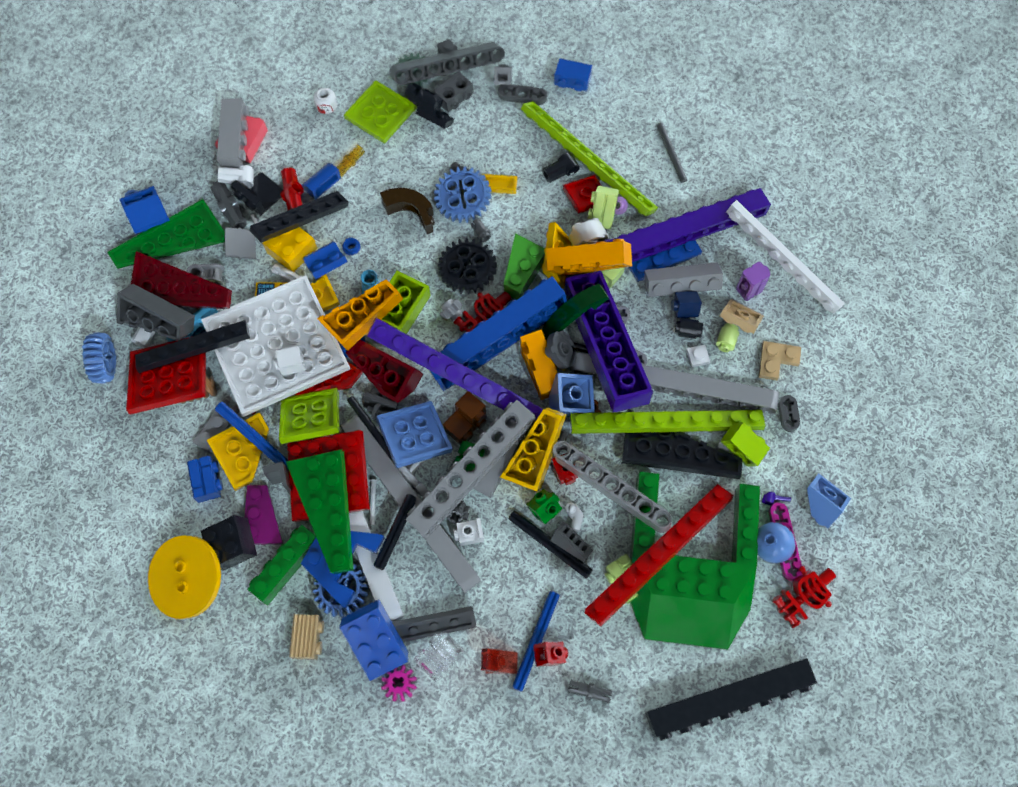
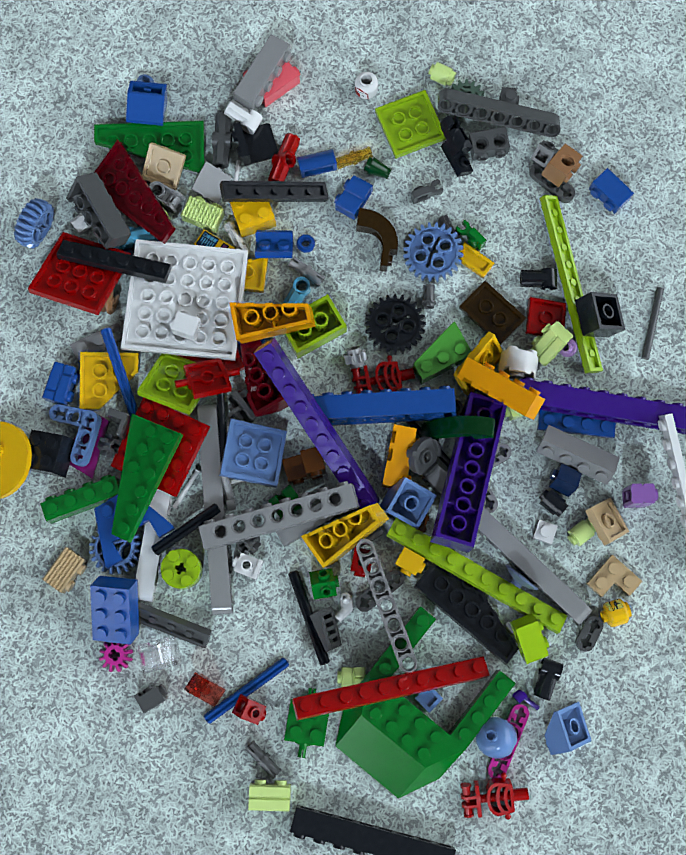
camera: 30 degrees right, 10 degrees up
(189, 249) = (163, 165): none -> tan plate
(247, 271) = (202, 214): none -> yellowish green brick
(248, 502) = (82, 423): none -> medium blue beam
(280, 504) = (109, 445): none -> dark grey gear
(335, 394) = (207, 378): none -> red plate
(359, 266) = (306, 271): none -> light grey pin
(369, 188) = (353, 197): none -> blue brick
(372, 158) = (377, 168): none -> dark green cone
(381, 62) = (442, 74): none -> yellowish green brick
(401, 567) = (176, 559): none -> lime brick
(425, 155) = (423, 193): none -> dark grey plate
(455, 700) = (151, 698): none -> dark grey brick
(488, 165) = (474, 238): none -> green plate
(523, 75) = (561, 165): none -> medium nougat brick
(537, 212) = (492, 312): none -> dark brown plate
(596, 499) = (364, 595): none -> dark grey beam
(605, 444) = (410, 562): none -> yellow brick
(609, 639) = (305, 731): none -> green plate
(617, 719) = (269, 796): none -> yellowish green brick
(627, 165) = (599, 314): none -> black brick
(696, 547) = (429, 699): none -> medium blue plate
(705, 401) = (519, 580): none -> sand blue dish
(781, 467) = (548, 675): none -> black piece
(798, 383) = (615, 613): none -> yellow head

